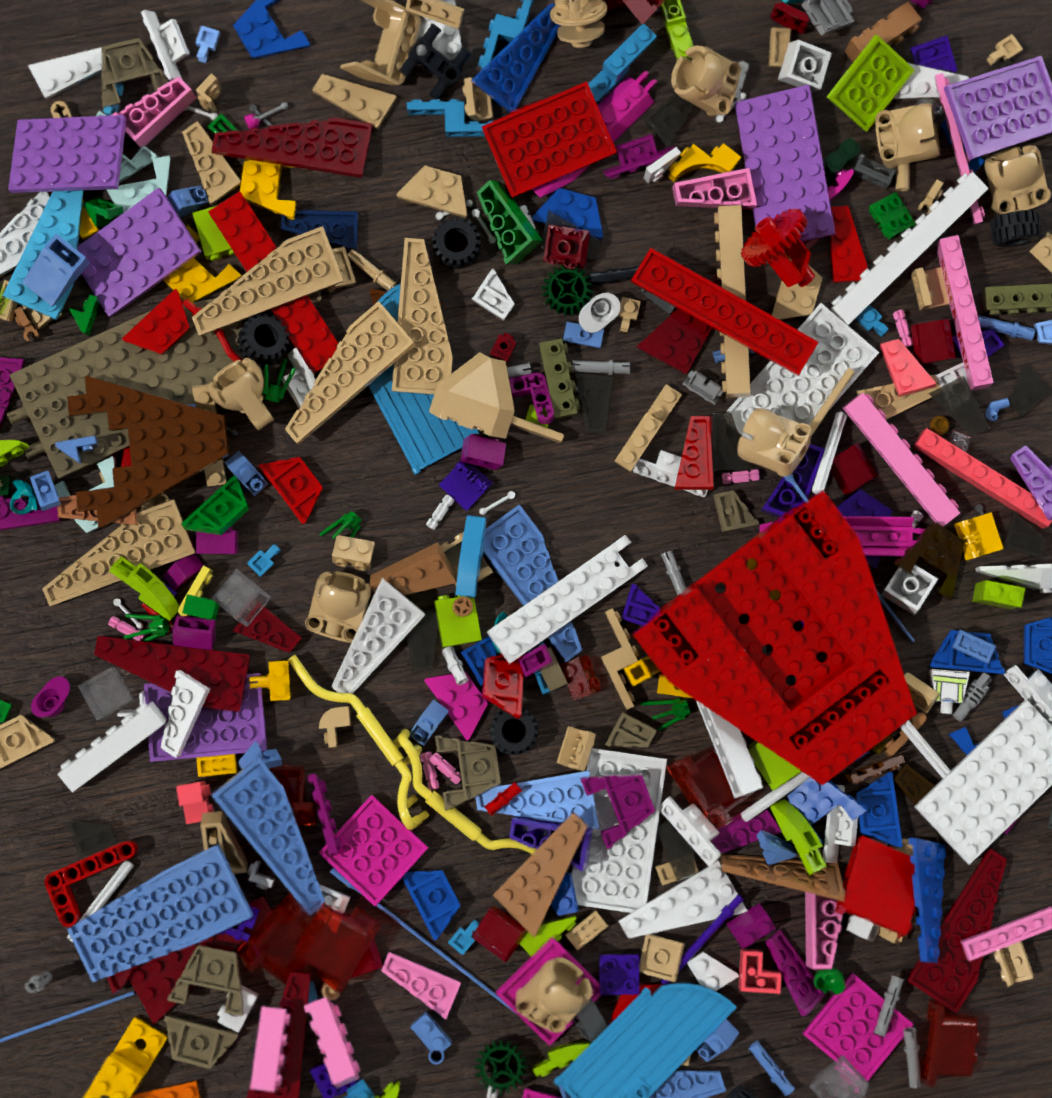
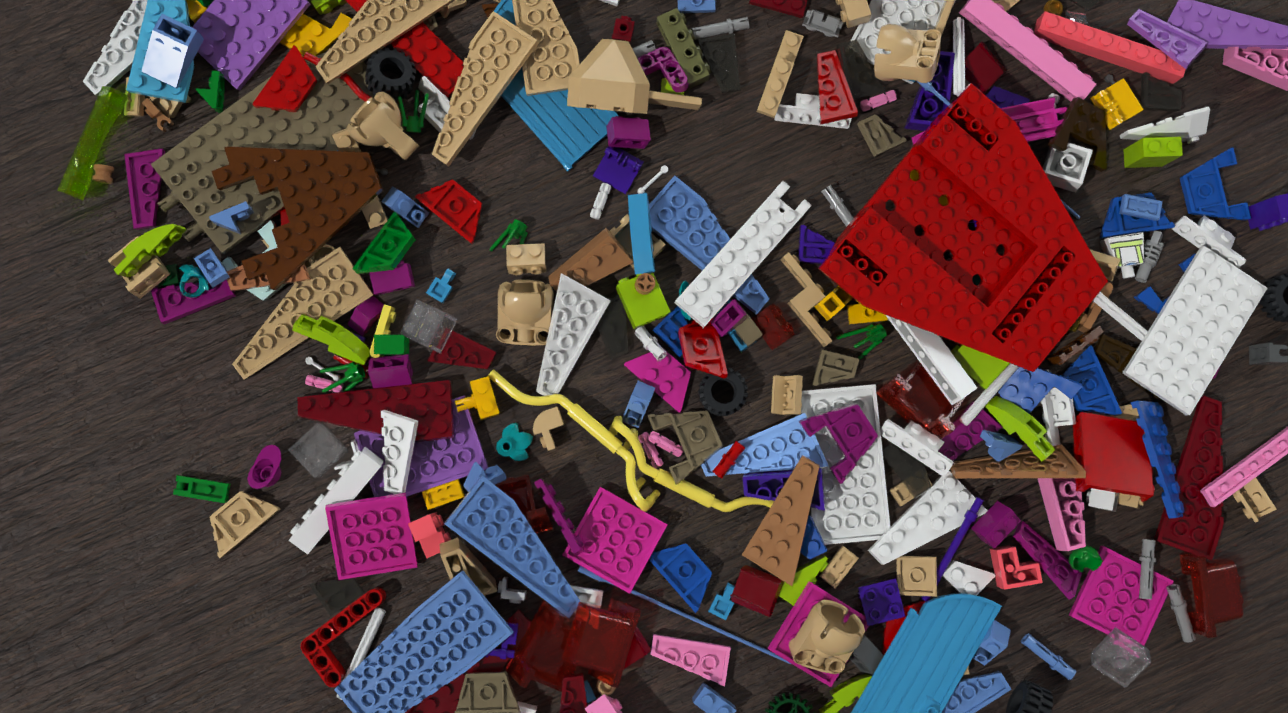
camera: 20 degrees left, 0 degrees up
(138, 789) = (371, 536): none -> dark pink plate
(301, 731) = (517, 443): none -> teal plate

